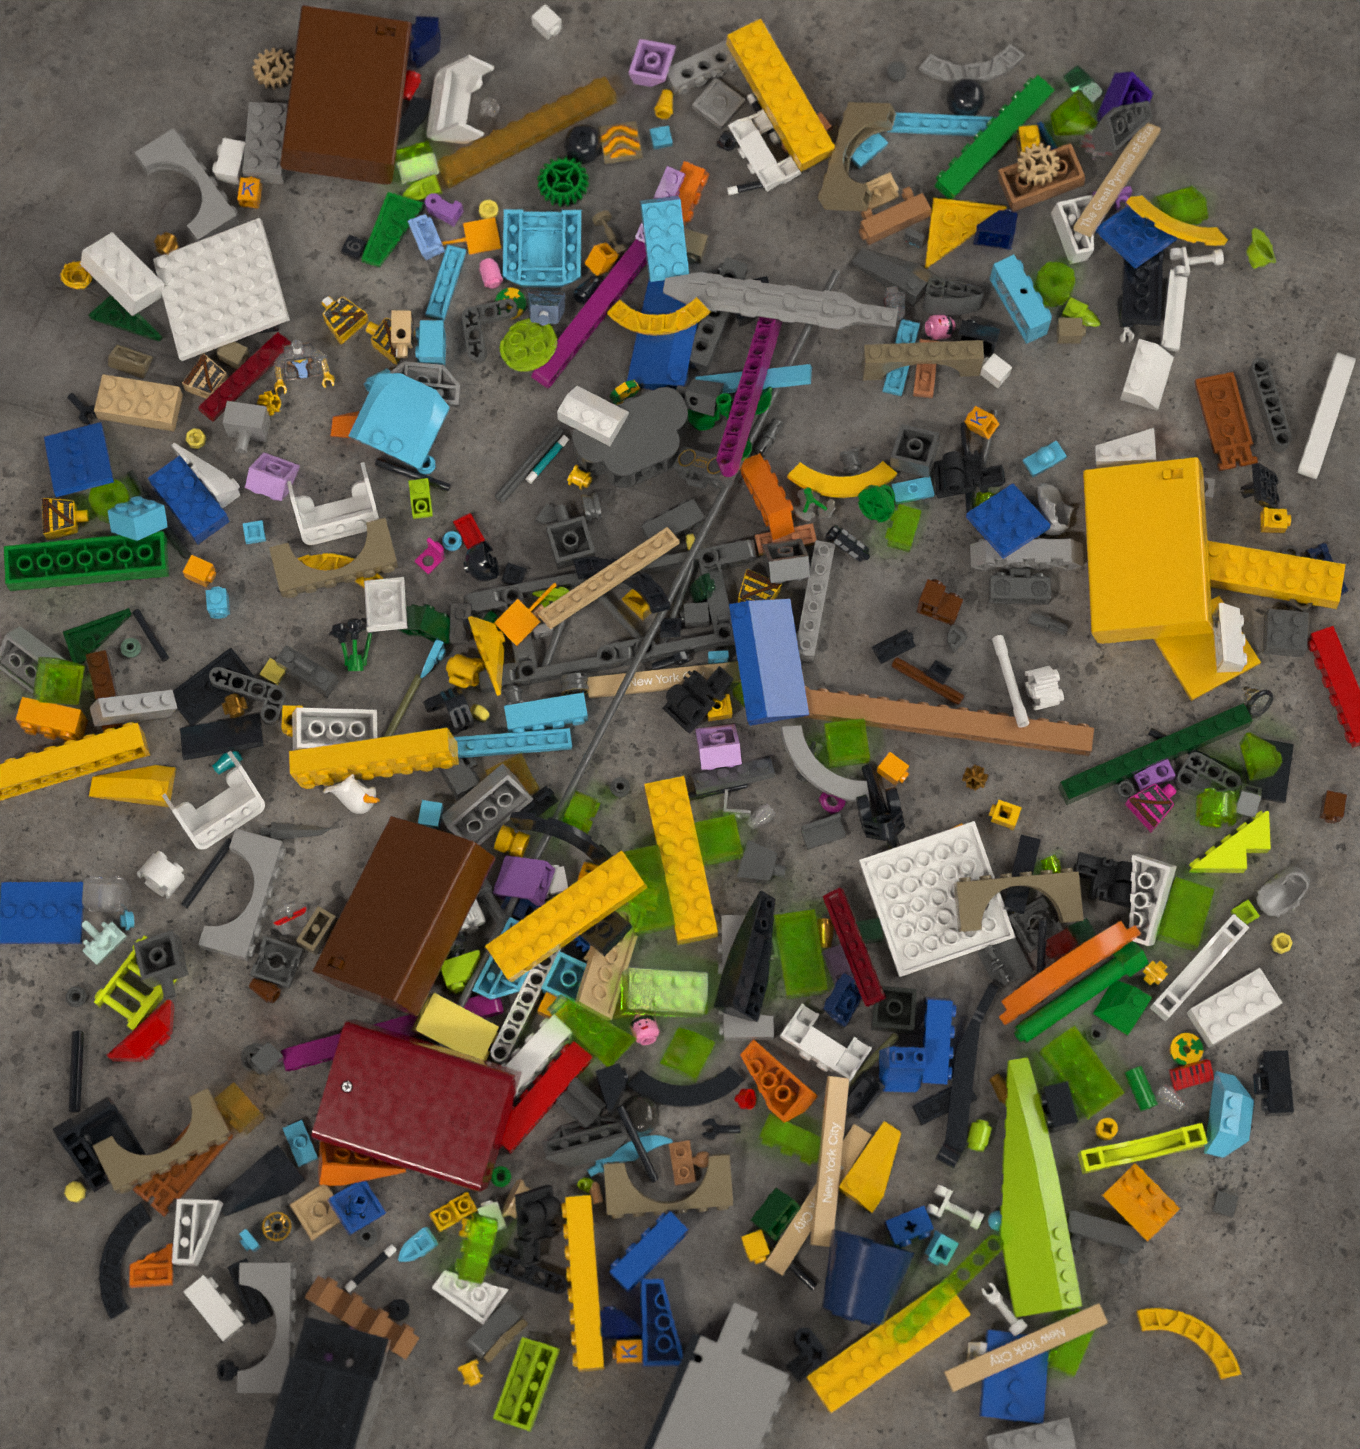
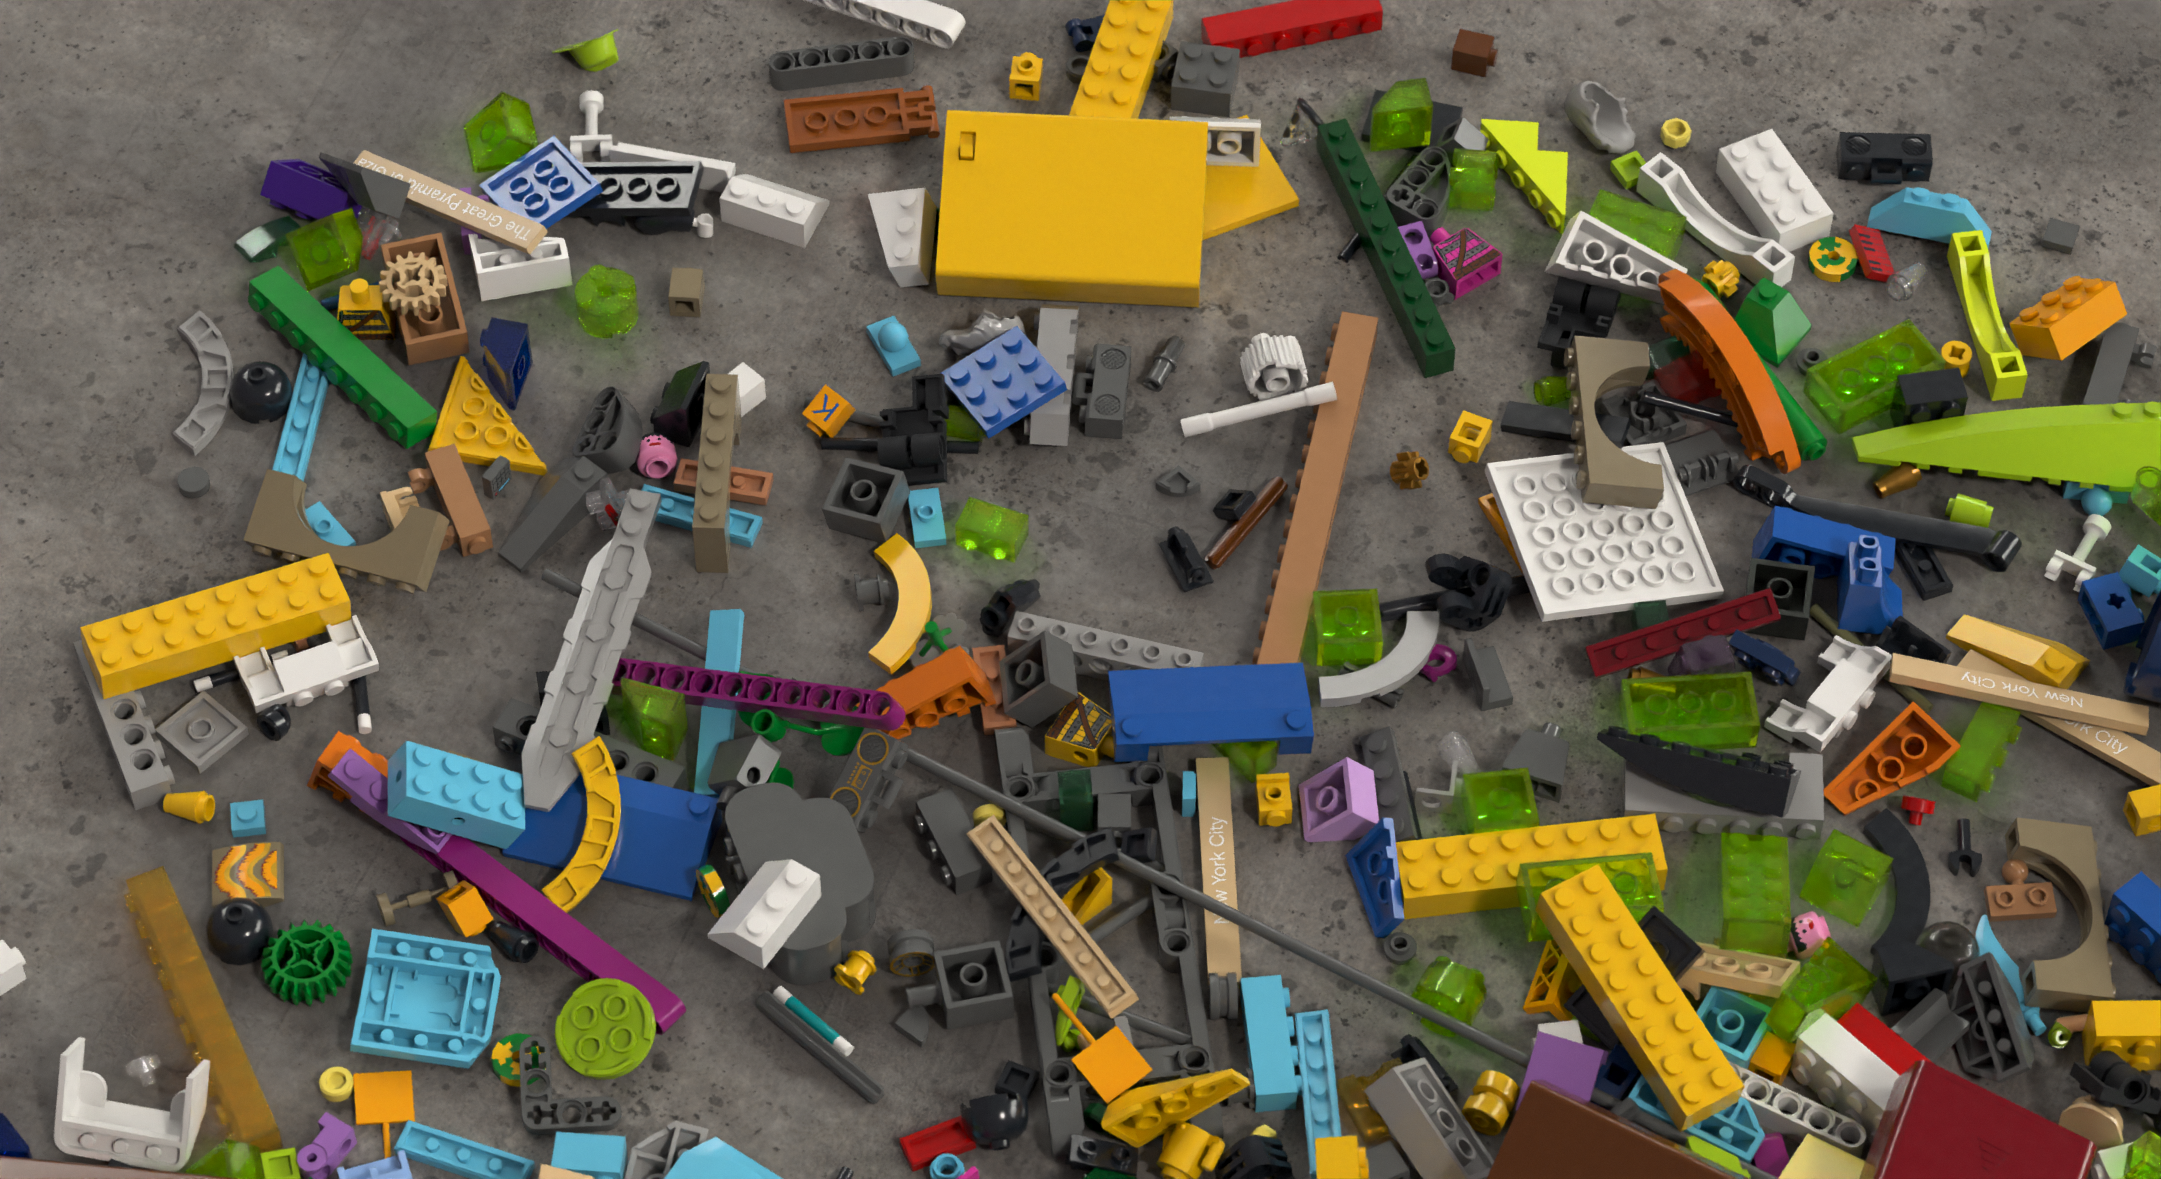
camera: 85 degrees left, 20 degrees down
(490, 273) = (461, 1082): bright pink brick -> none
(545, 306) = (541, 996): sand blue torso -> none
(563, 831) = (1492, 997): black tile -> none
(637, 1143) = (1999, 949): black bar -> none
(651, 63) = (116, 807): lavender slope -> none
(662, 770) = (1378, 878): none -> blue wing
(677, 659) = (1187, 852): black bar -> none
(695, 697) = (1261, 820): black plate -> none
(737, 345) = (655, 717): none -> clear neon green slope
(775, 1213) = (2100, 775): dark green brick -> none
(877, 502) = (950, 555): green tile -> none
(893, 769) = (1390, 574): light orange brick -> none
(939, 604) = (1122, 492): reddish brown brick -> none
(1020, 298) = (629, 341): medium azure brick -> none
(1077, 309) = (655, 283): lime plate -> none
(1141, 1088) = (1892, 312): green axle -> none
(1174, 227) = (548, 128): yellow tile -> none
(1263, 487) = (977, 79): black plate -> none

